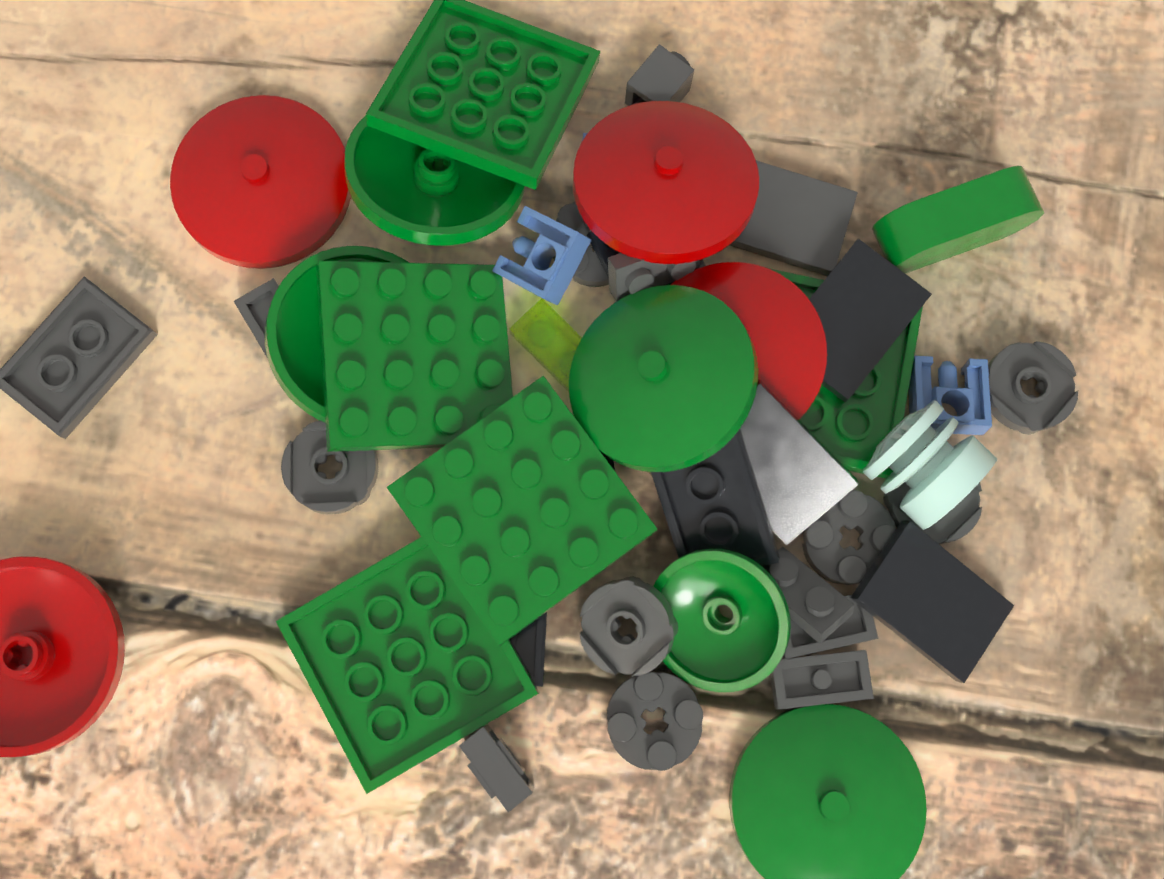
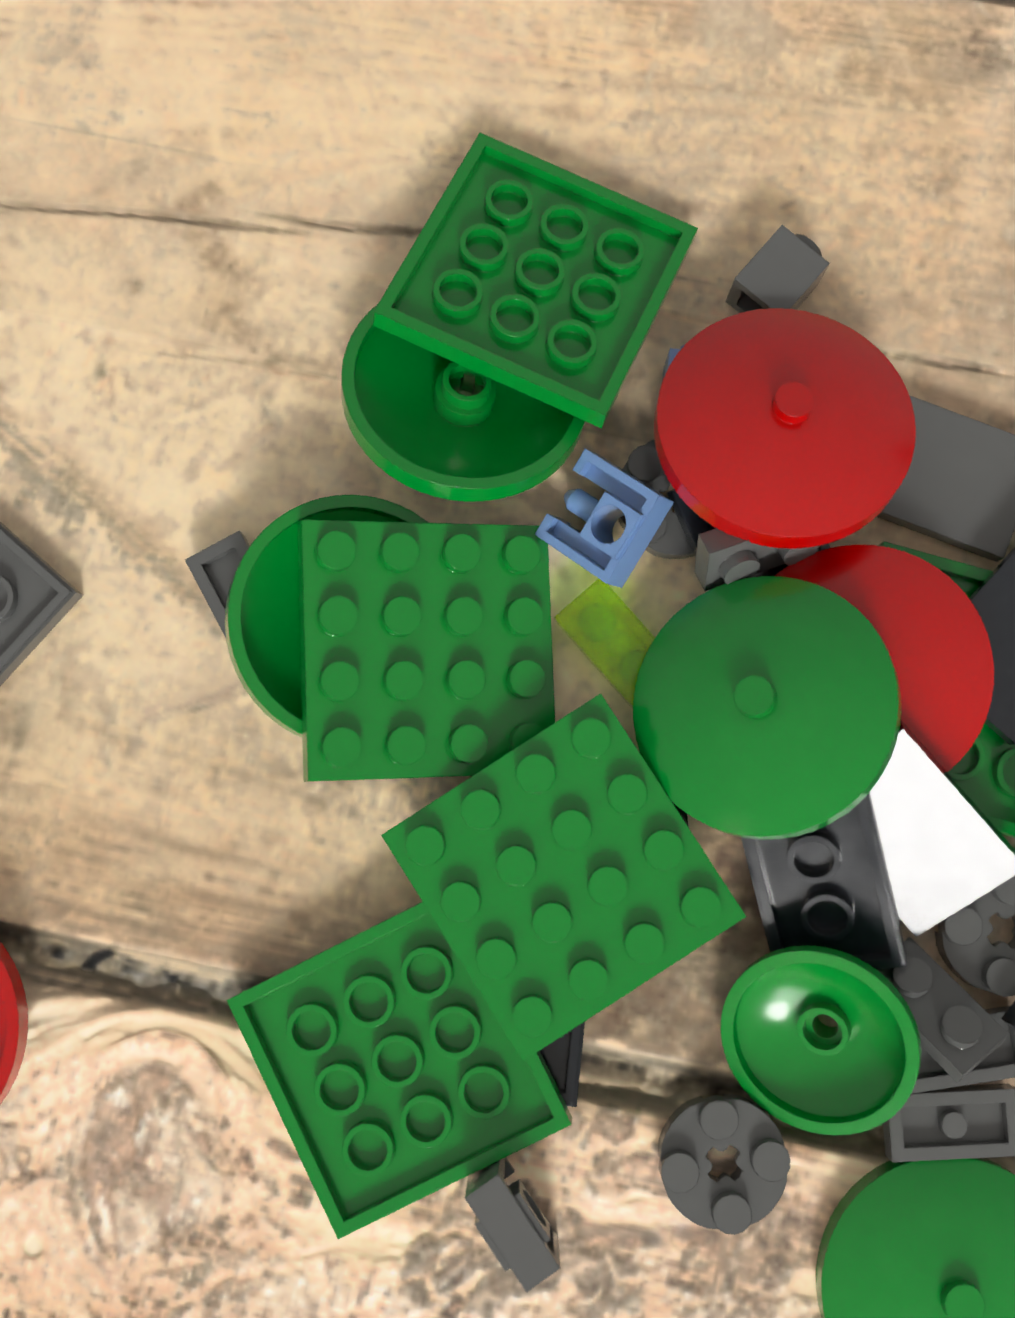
camera: 15 degrees right, 5 degrees up
(260, 181) = (226, 391): red dish -> none
(312, 488) = (280, 819): dark grey plate -> none
(654, 622) = (706, 1005): dark grey plate -> none

